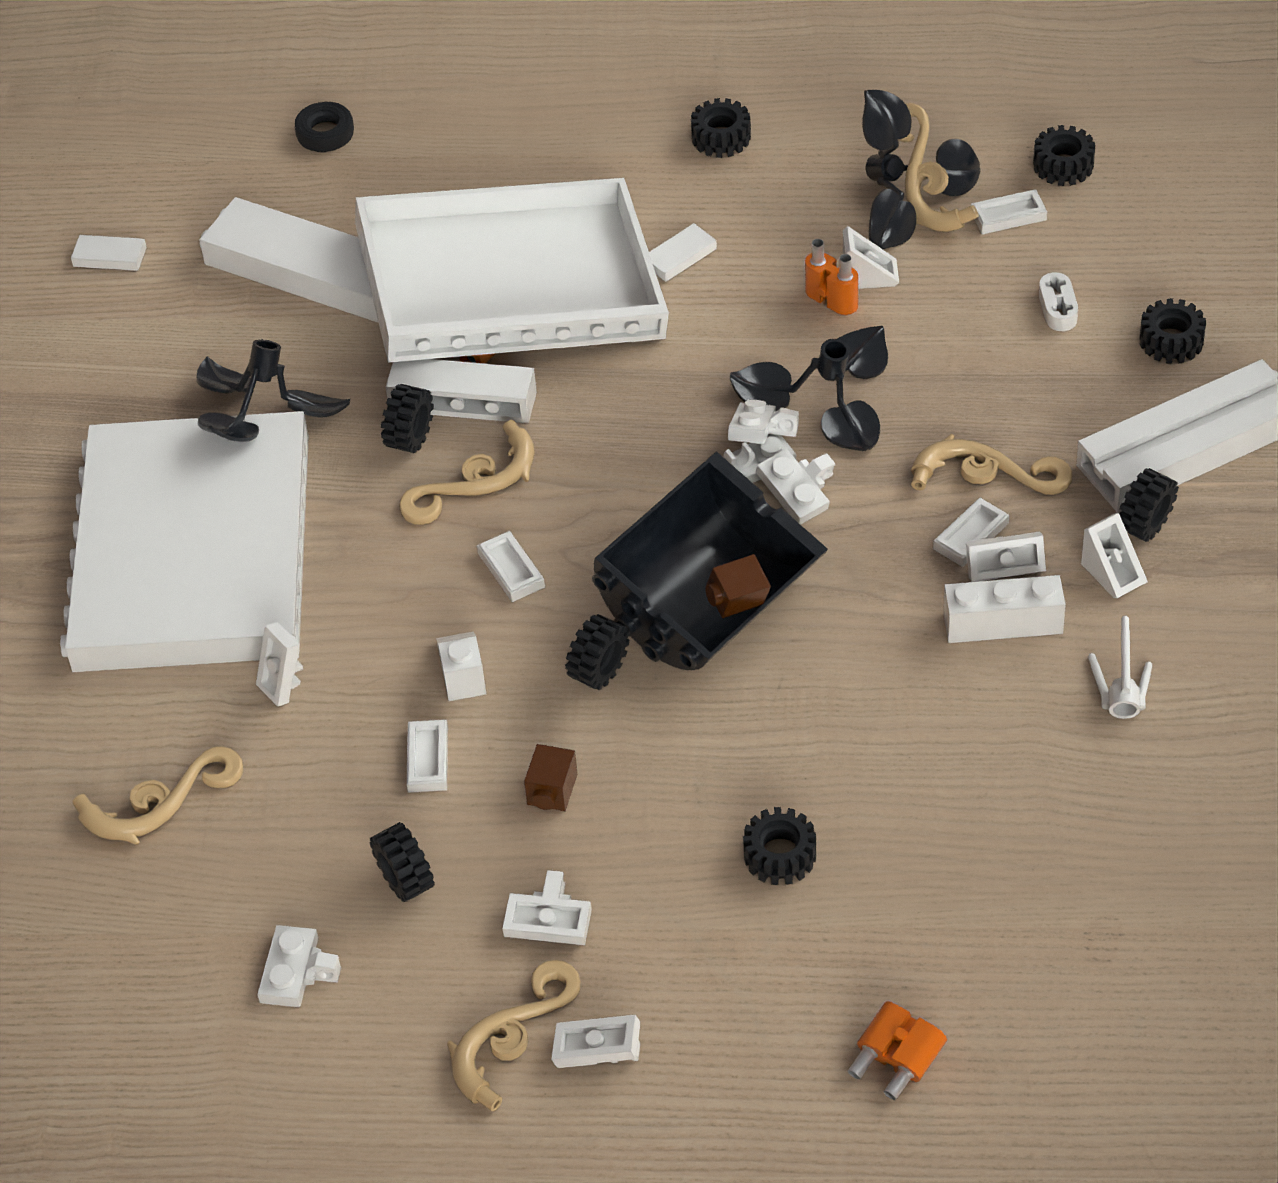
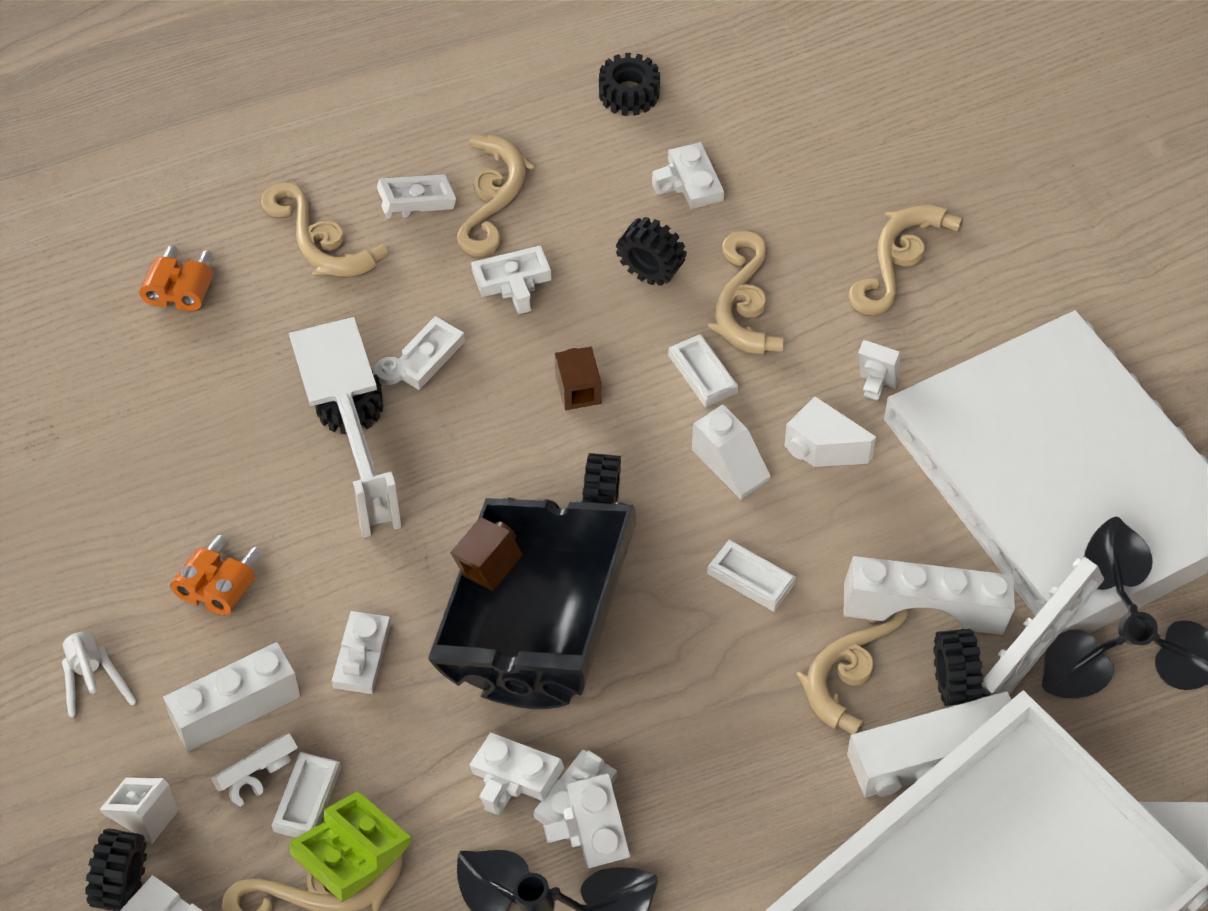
camera: 150 degrees right, 5 degrees up
(277, 1081) = (631, 70): none -> black tyre
(320, 406) = (1043, 628): none -> white hinge
(339, 819) = (752, 297): none -> tan plant
(368, 640) = (827, 437): none -> white slope
(422, 485) = (883, 587): none -> white arch
(685, 862) = (422, 356): none -> white hinge
(734, 1057) = (327, 231): none -> tan plant
(783, 850) = (336, 370): none -> white piece
(876, 621) = (361, 652): none -> white plate
(953, 468) = (350, 846): none -> lime slope
(981, 717) = (214, 581): none -> orange piece

